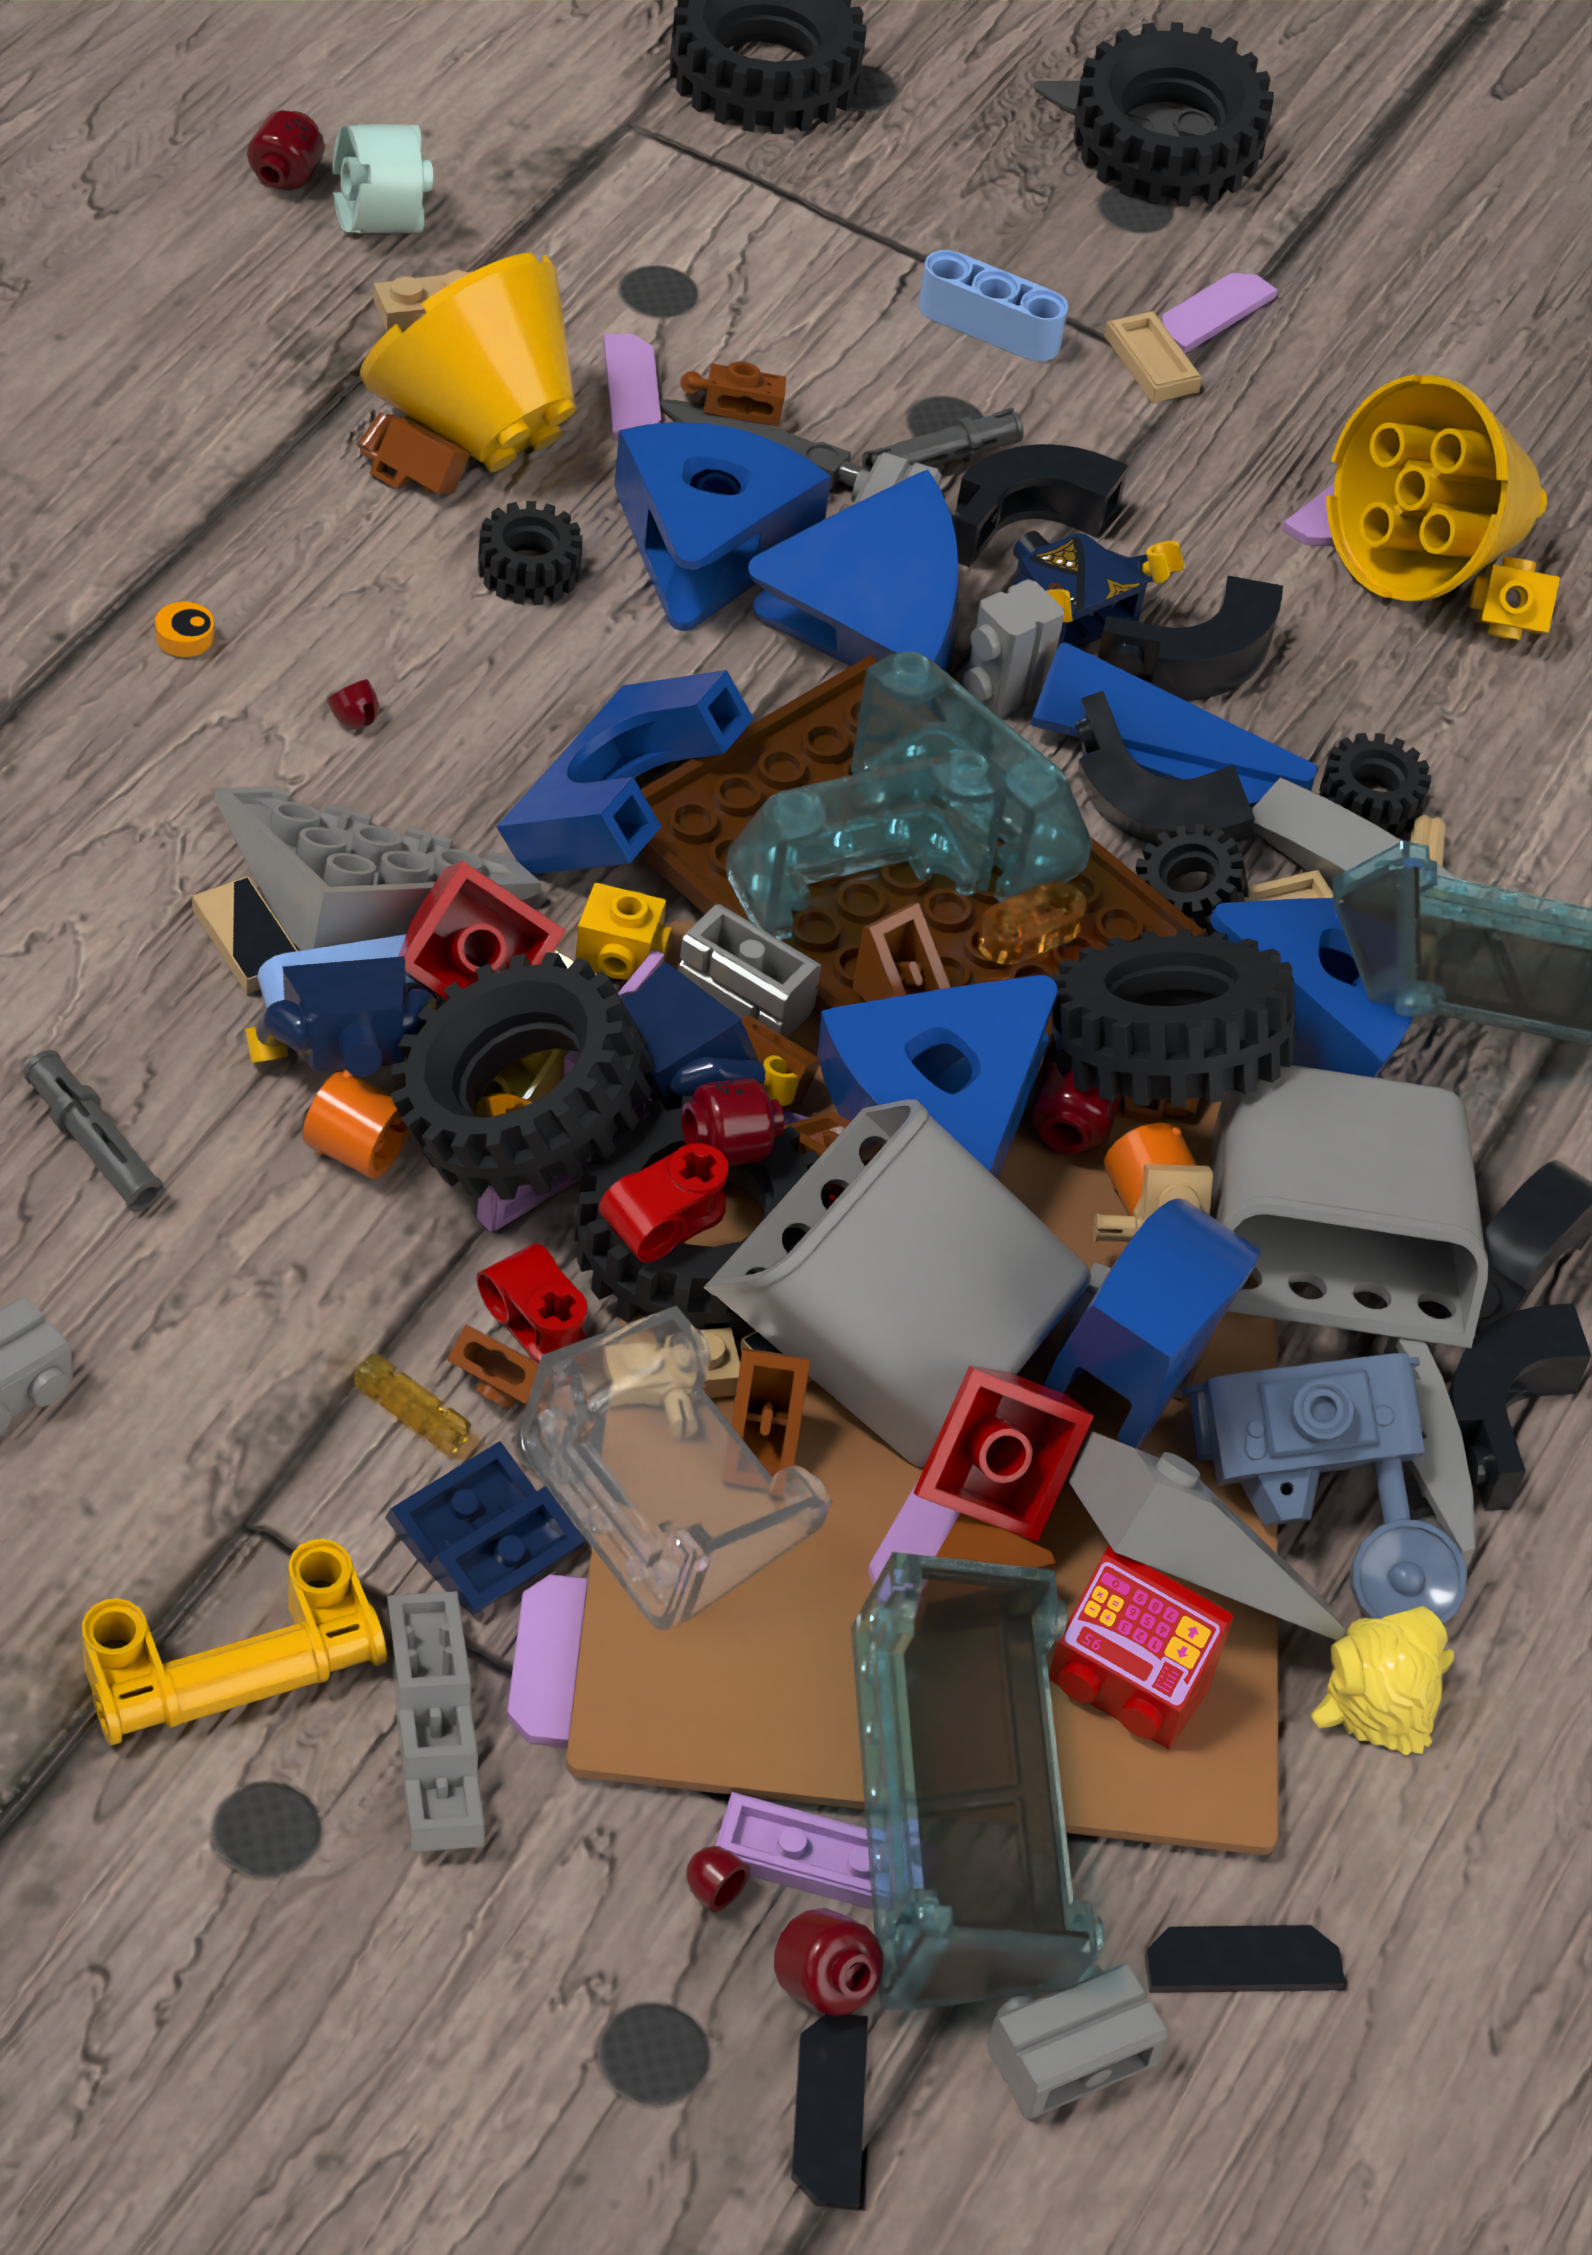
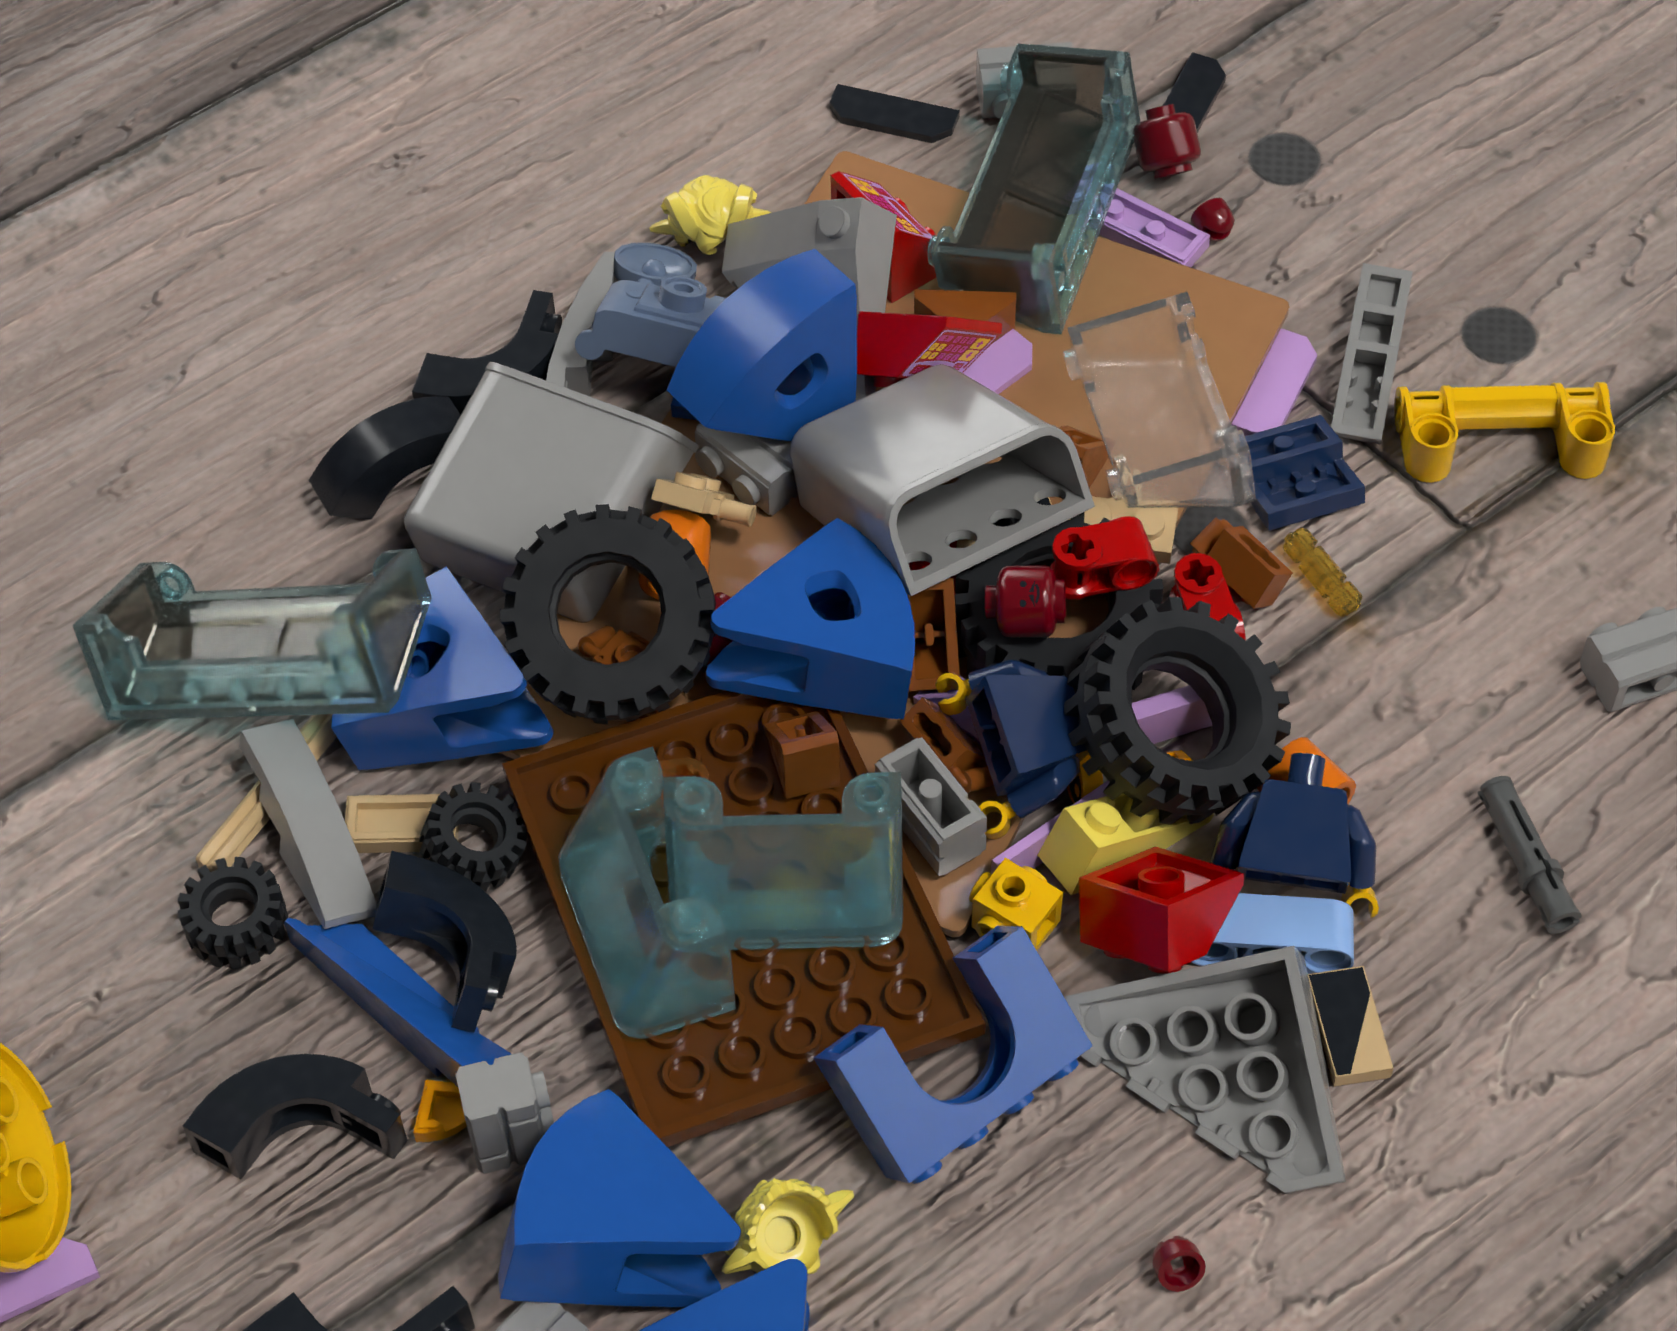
camera: 150 degrees left, 5 degrees up
(724, 633) = (784, 1223): none -> light yellow hair
(1092, 580) = (385, 1205): dark blue torso -> none

